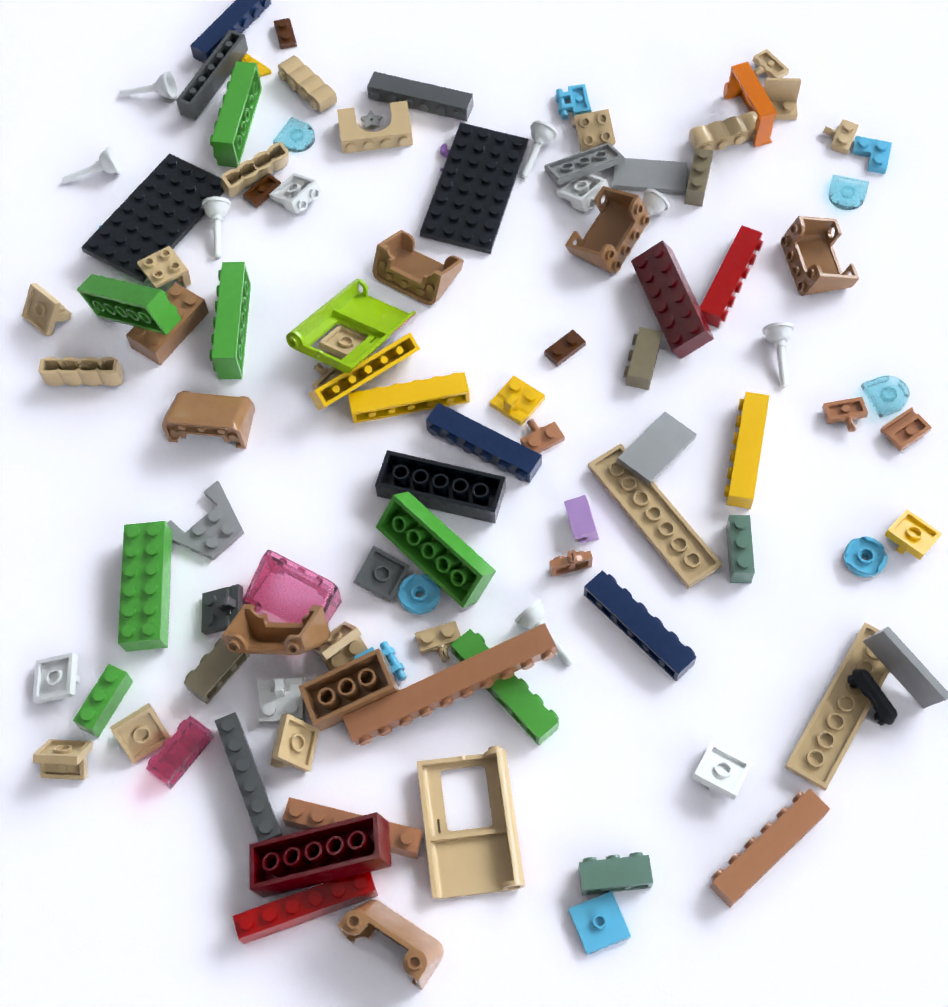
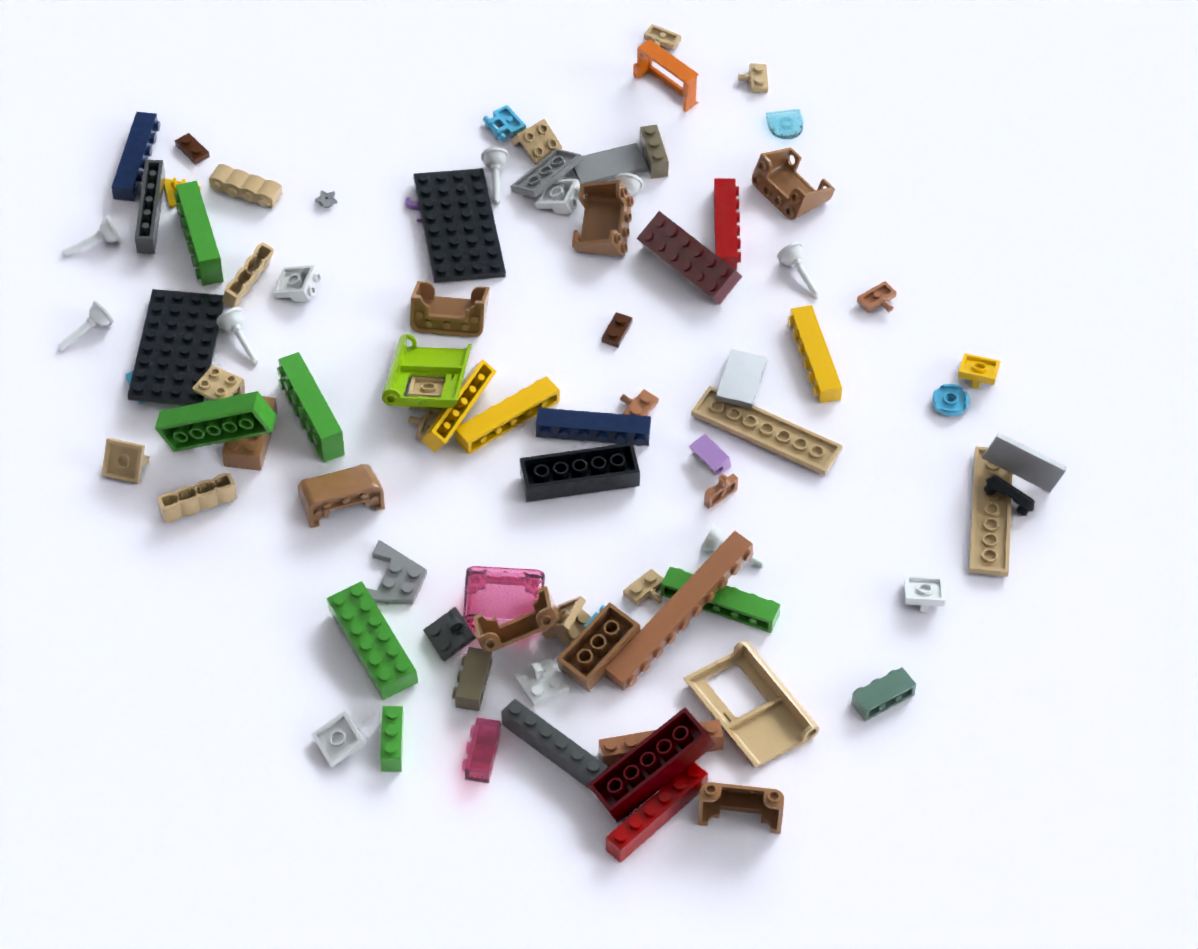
camera: 30 degrees left, 10 degrees down
(63, 759) = (388, 794): tan bracket -> none
(140, 733) = (441, 747): tan bracket -> none
(260, 191) = (262, 292): reddish brown plate -> none
(294, 744) = (573, 706): tan bracket -> none
(296, 136) = (262, 232): clear light blue tile -> none
(381, 574) = (569, 556): dark grey hinge -> none
(396, 134) = (323, 219): tan arch -> none
(418, 584) = (609, 553): medium azure plate -> none
(421, 96) = (360, 163): dark grey brick -> none
(435, 549) = (605, 518): bright green brick -> none
(517, 400) = (601, 385): yellow hinge -> none
(599, 923) = (889, 732): medium azure plate -> none
(640, 625) = (802, 515): dark blue brick -> none
(643, 358) = (689, 313): dark tan brick -> none
(723, 133) = (656, 107): tan brick -> none
(740, 549) = (850, 429): sand green brick -> none
(769, 847) = (987, 630): nougat brick -> none
(784, 96) = (692, 56): tan bracket -> none
(875, 149) = (790, 80): medium azure plate -> none
(886, 394) = (902, 273): clear light blue tile -> none
(906, 429) = (932, 294): nougat plate -> none

